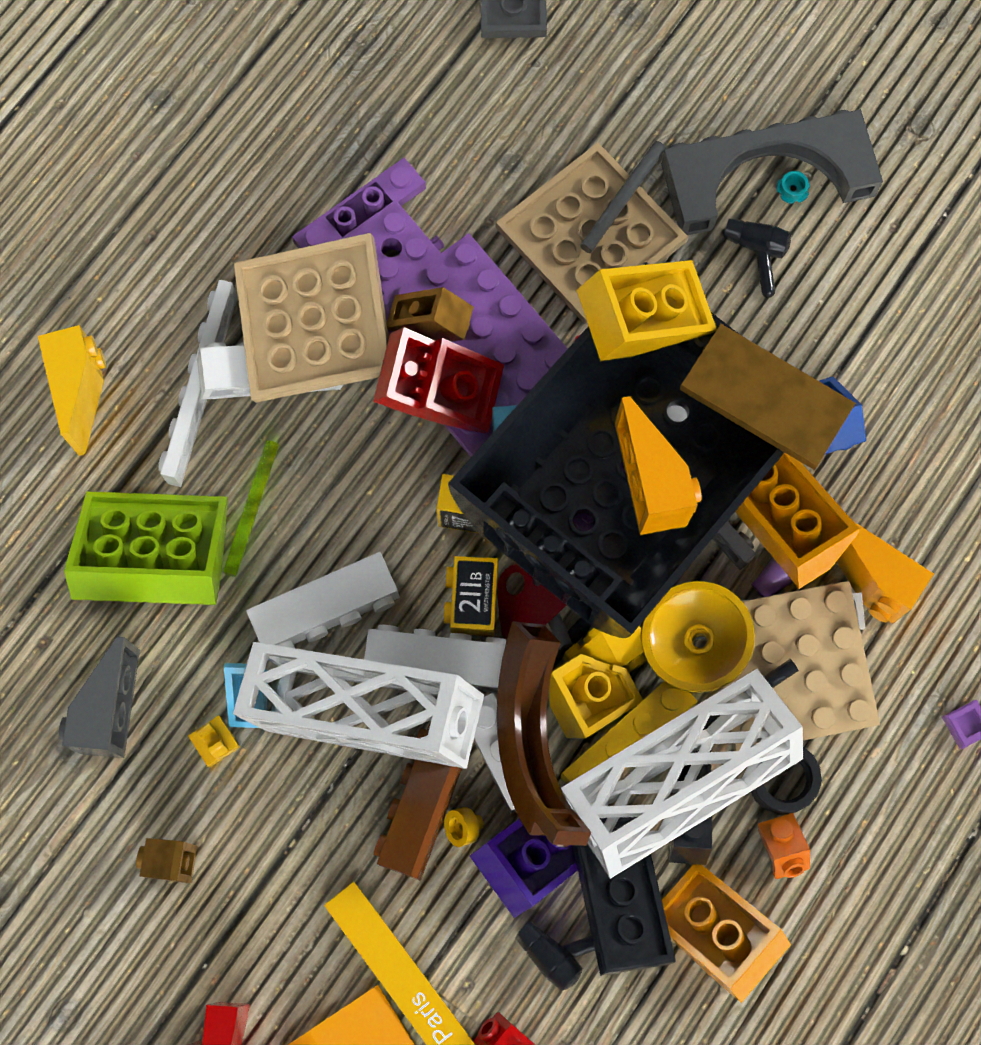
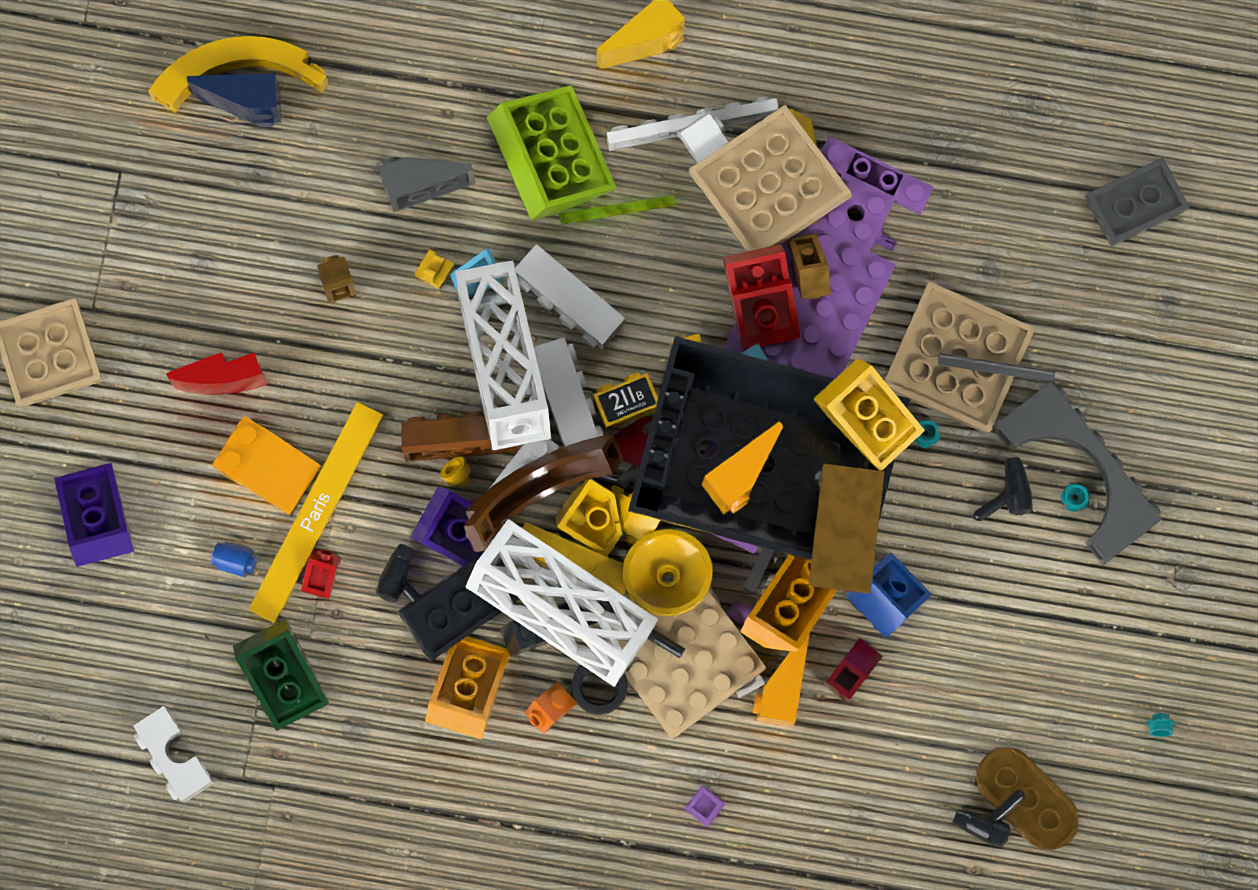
camera: 60 degrees right, 5 degrees up
(888, 492) = (853, 670): none -> dark red slope

